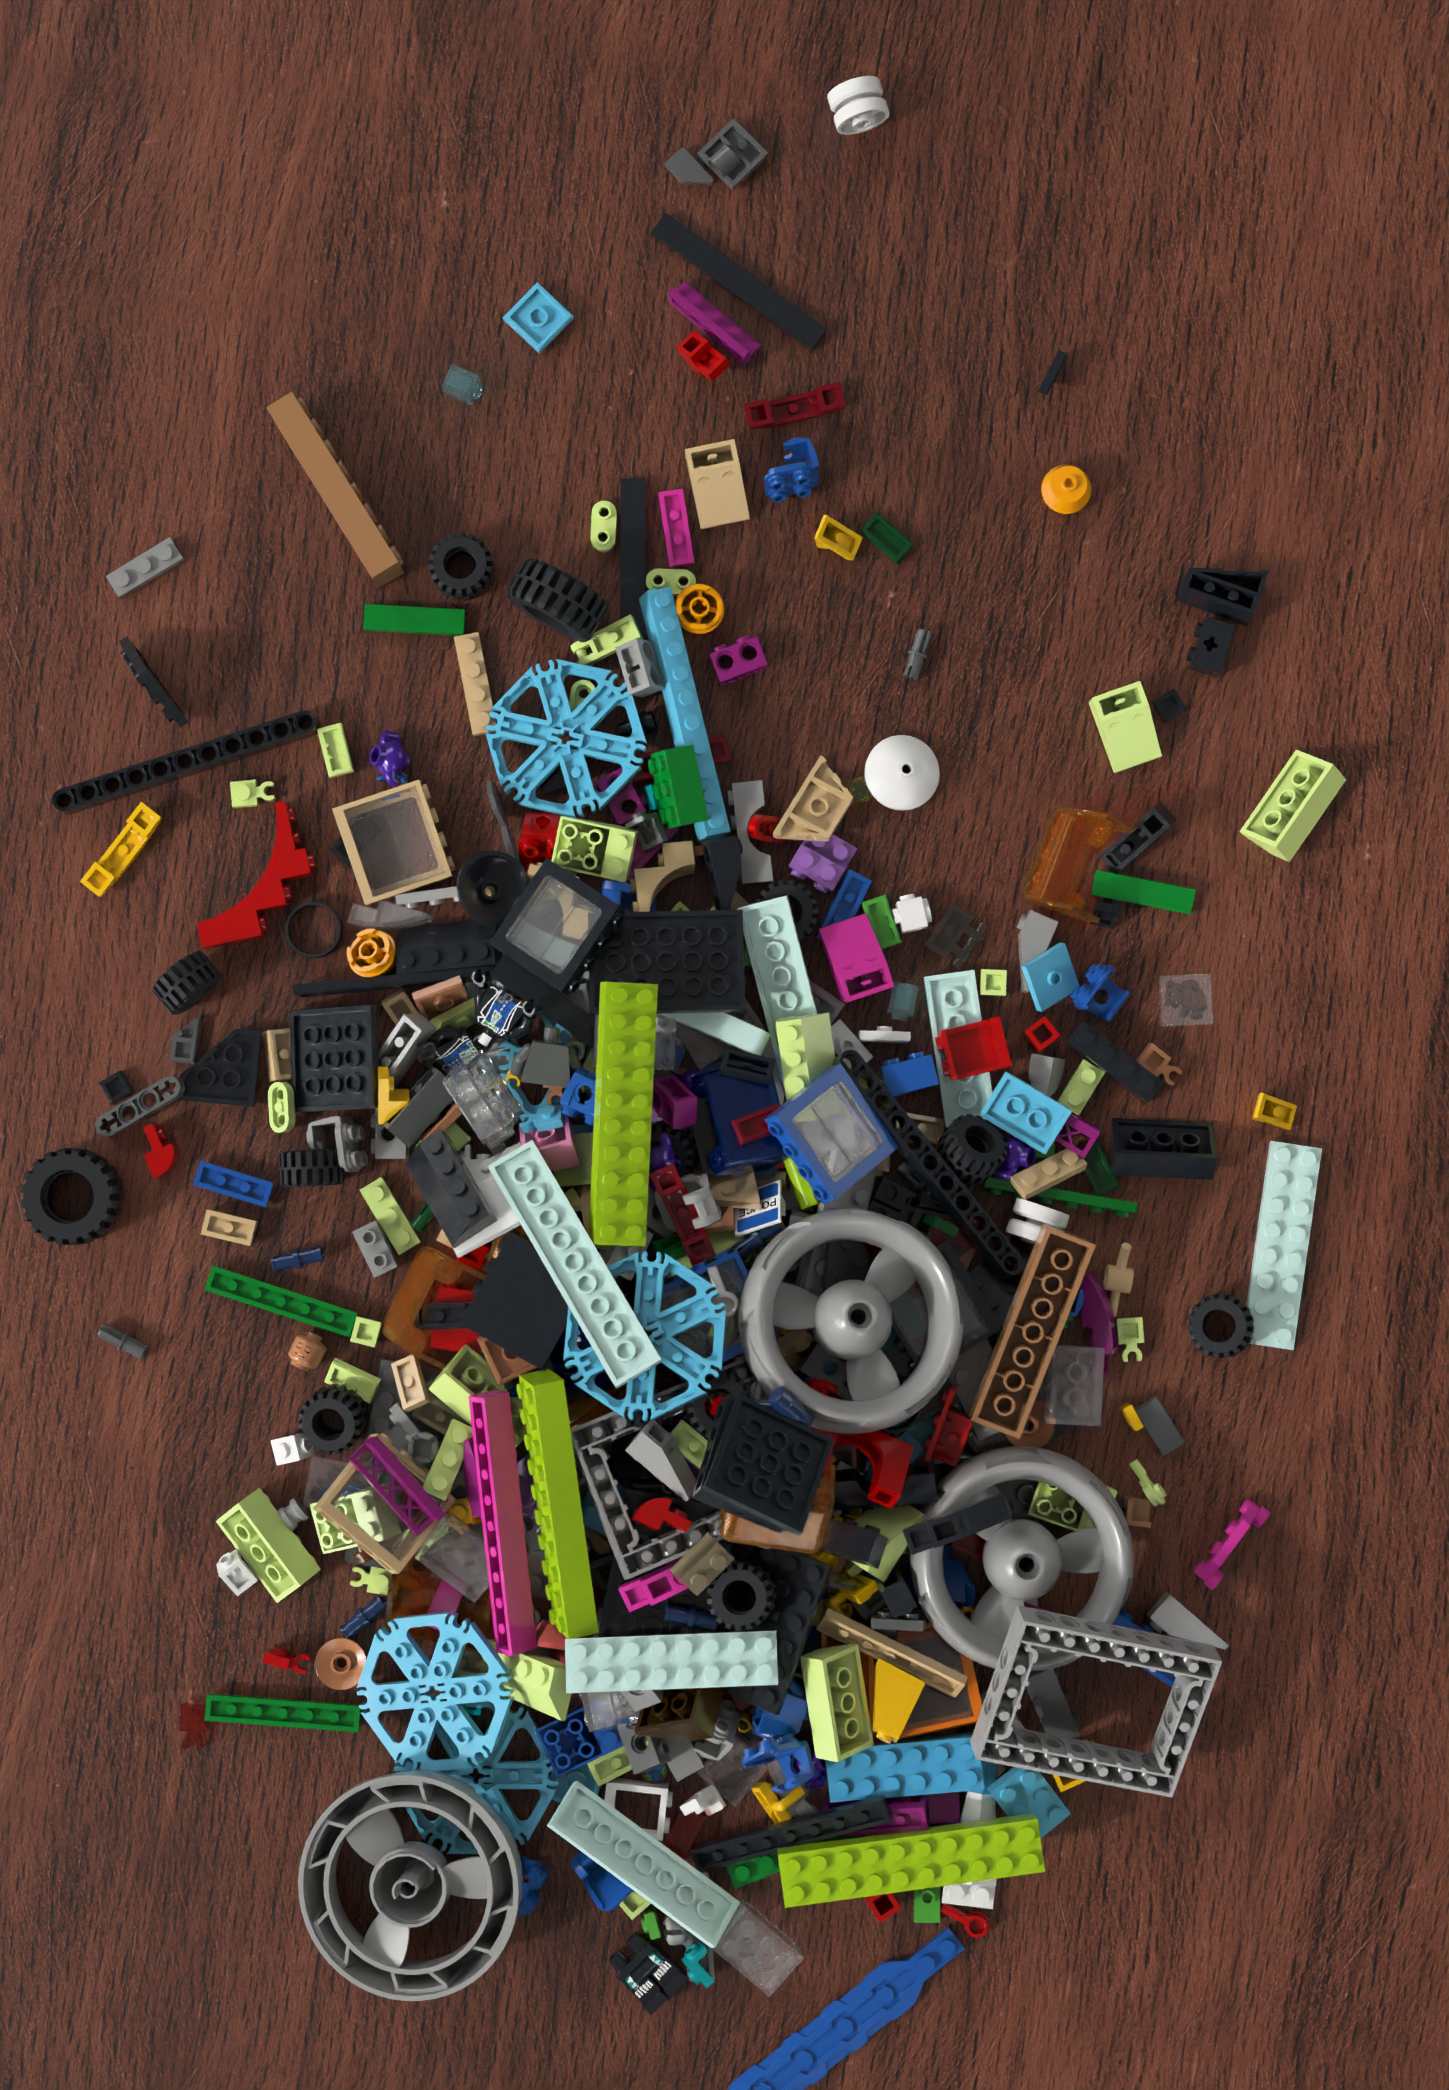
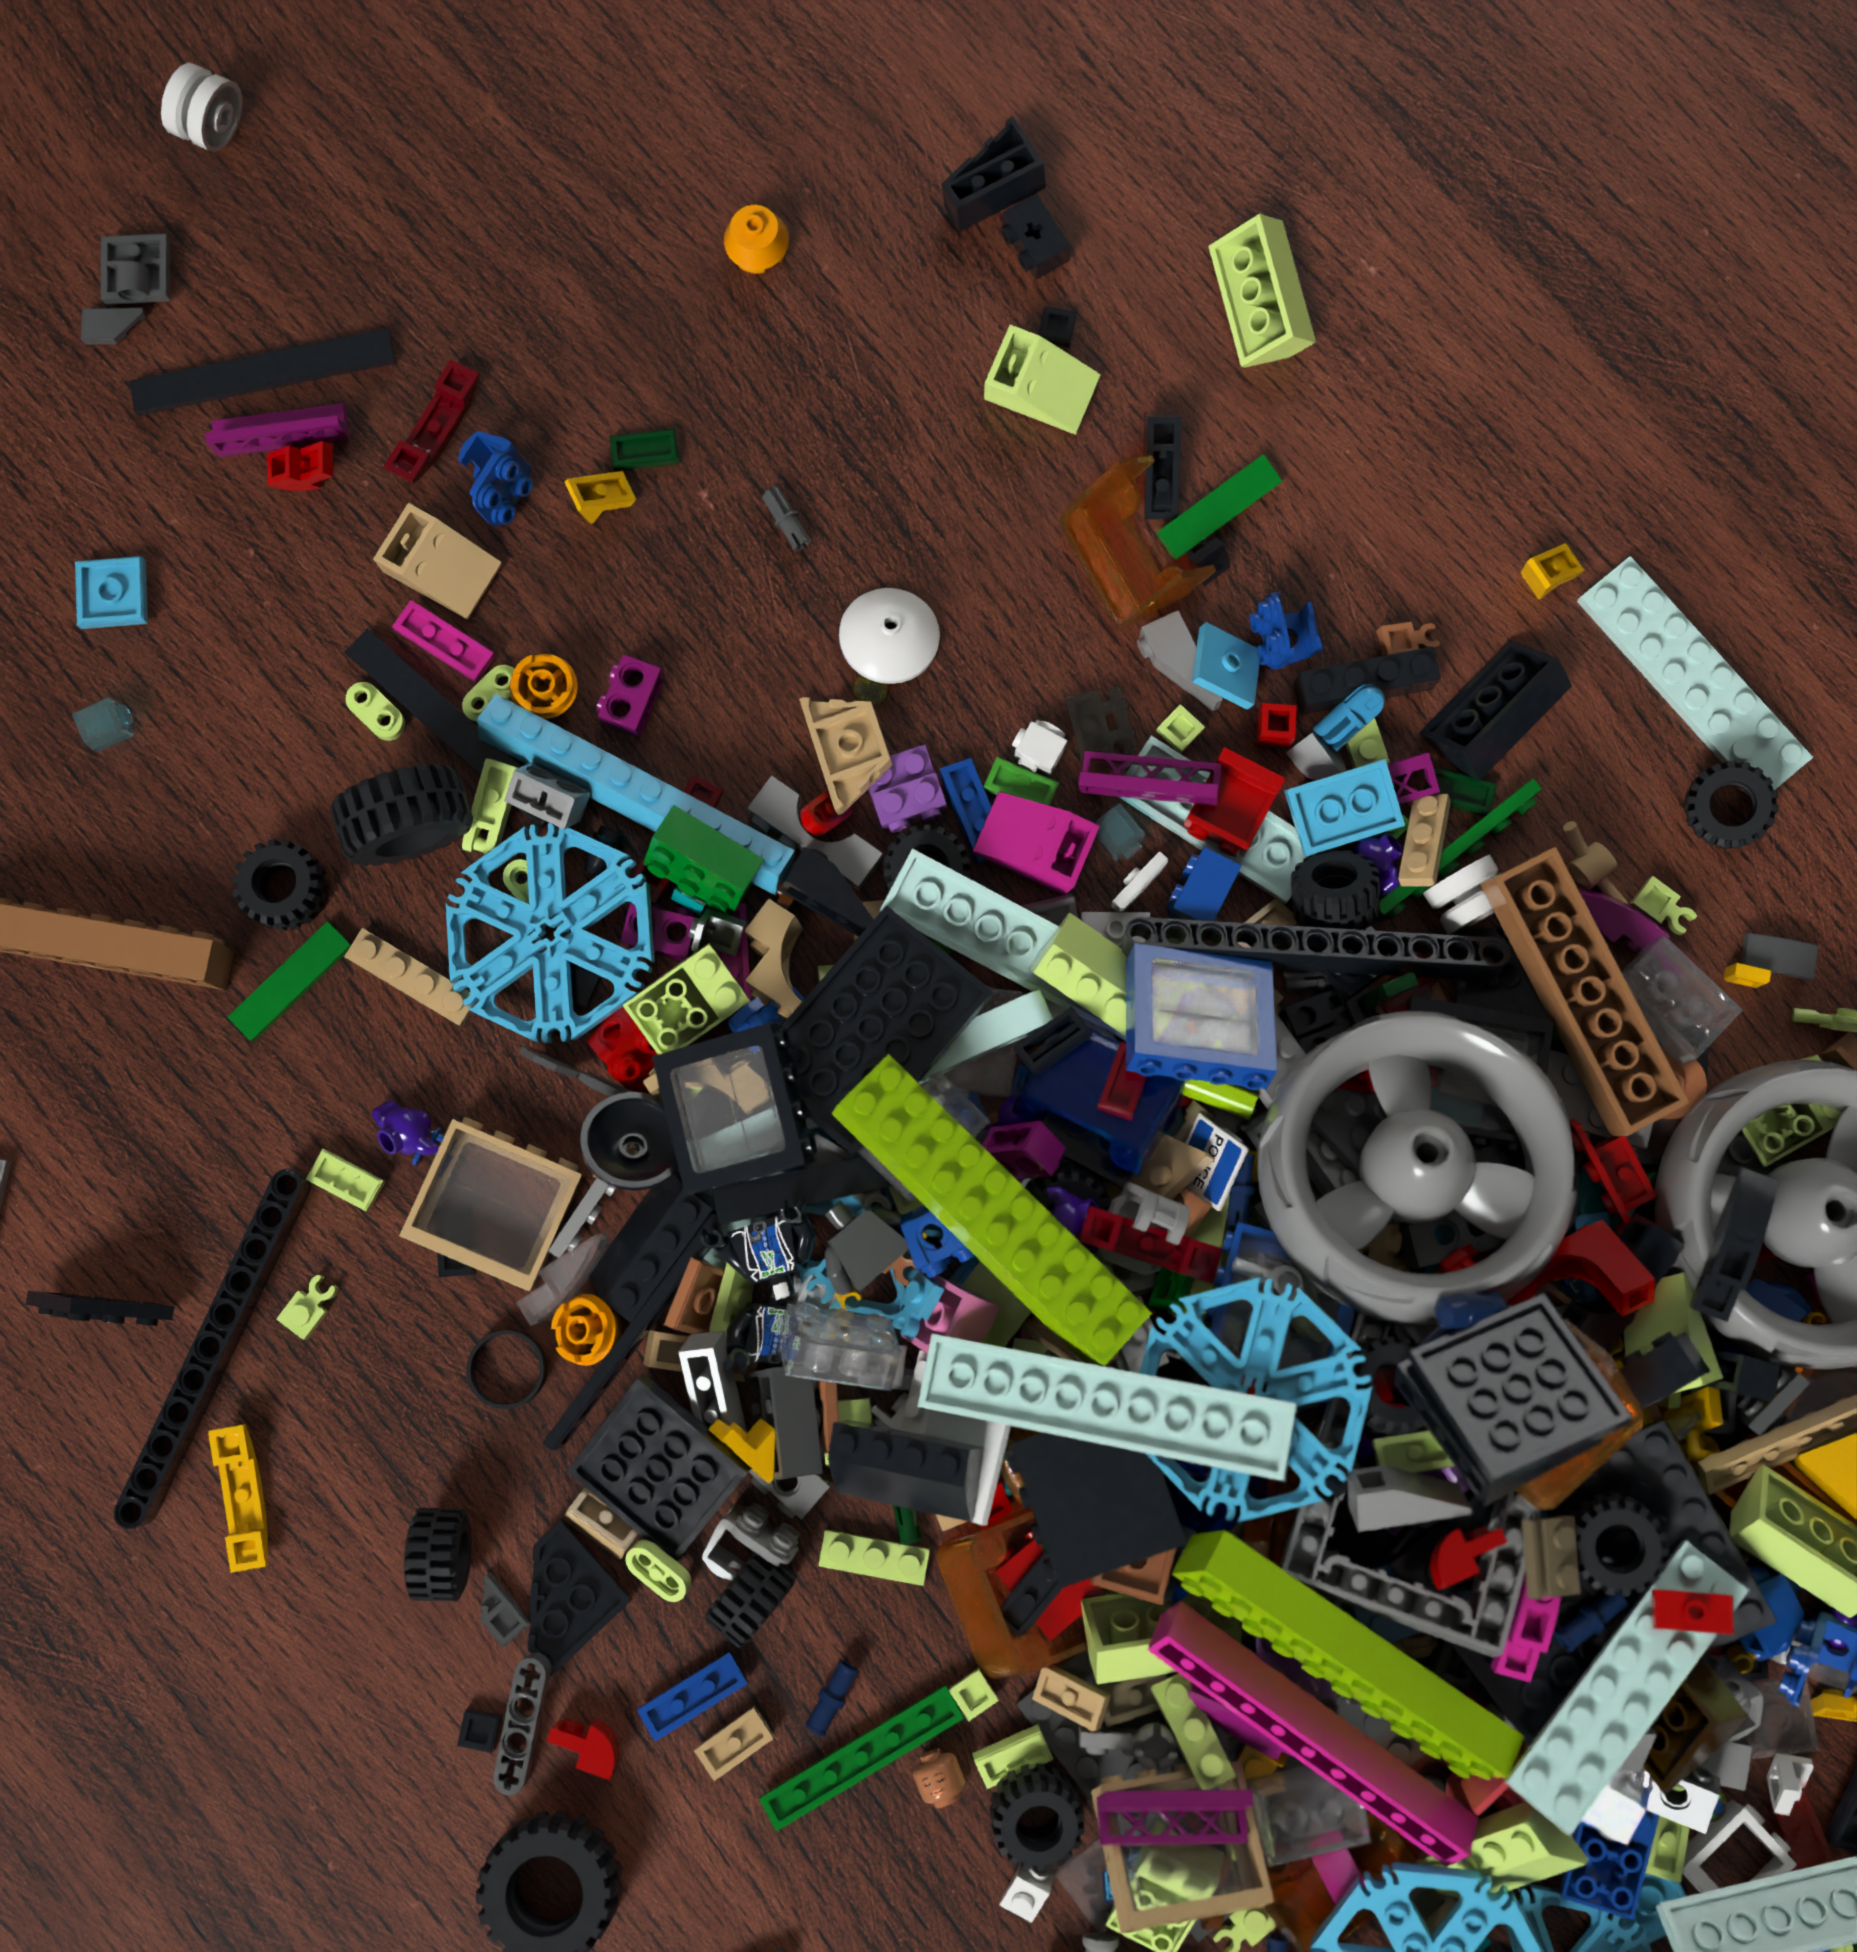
camera: 45 degrees left, 5 degrees down
(286, 864) = (429, 1433): red arch -> none
(376, 1248) = (896, 1604): light grey brick -> none
(739, 1662) = (1692, 1611): none -> red plate
(939, 994) = (1150, 787): none -> magenta fence
(1052, 372) = (631, 152): black tile -> none
(1082, 1071) = (1351, 715): none -> dark azure arm
(1185, 1000) = (1363, 559): clear tile -> none

